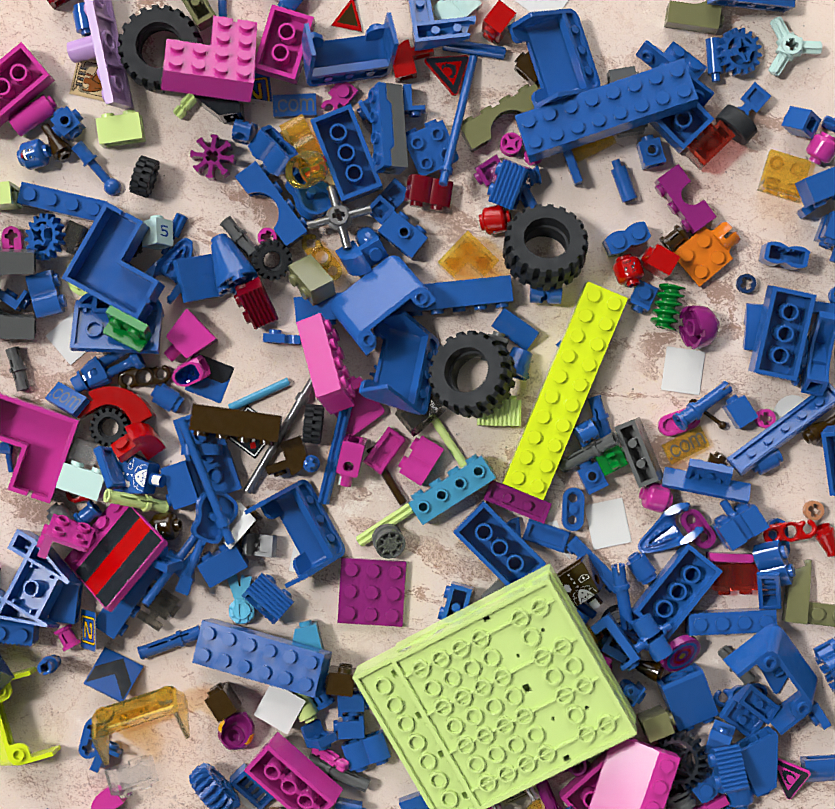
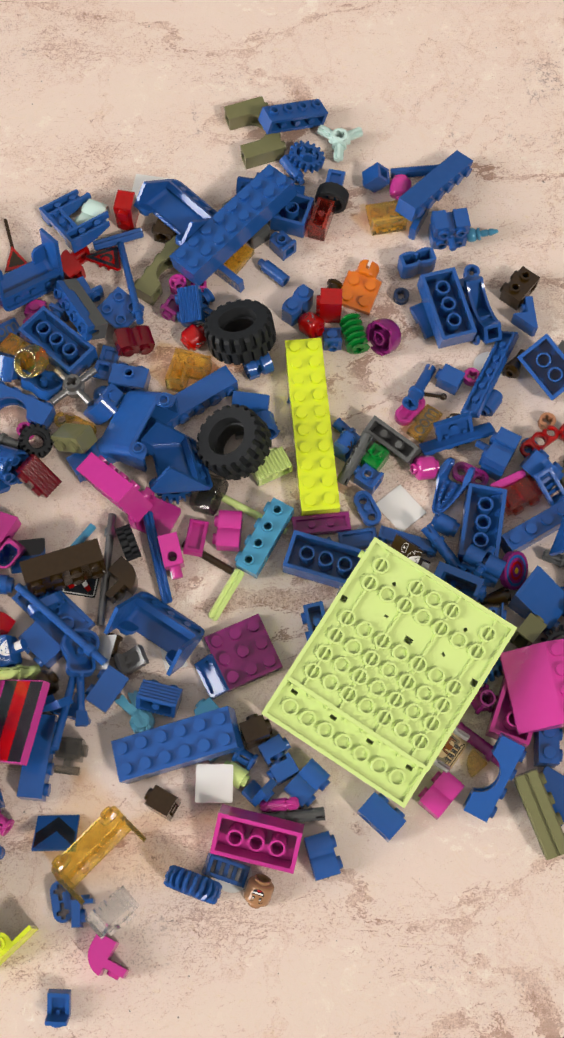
camera: 30 degrees left, 20 degrees down
(88, 630) = (15, 804): sticker -> none
(180, 639) = (101, 772): blue pin -> none
(236, 731) = (186, 824): magenta hair -> none
(277, 337) = (69, 496): blue plate -> none
(311, 463) = (142, 573): blue axle -> none
(328, 601) = (211, 677): none -> blue tile
(387, 540) = (234, 602): dark grey wheel -> none
(671, 186) = (309, 259): magenta arch -> none
(683, 370) = (391, 375): white sticker -> none

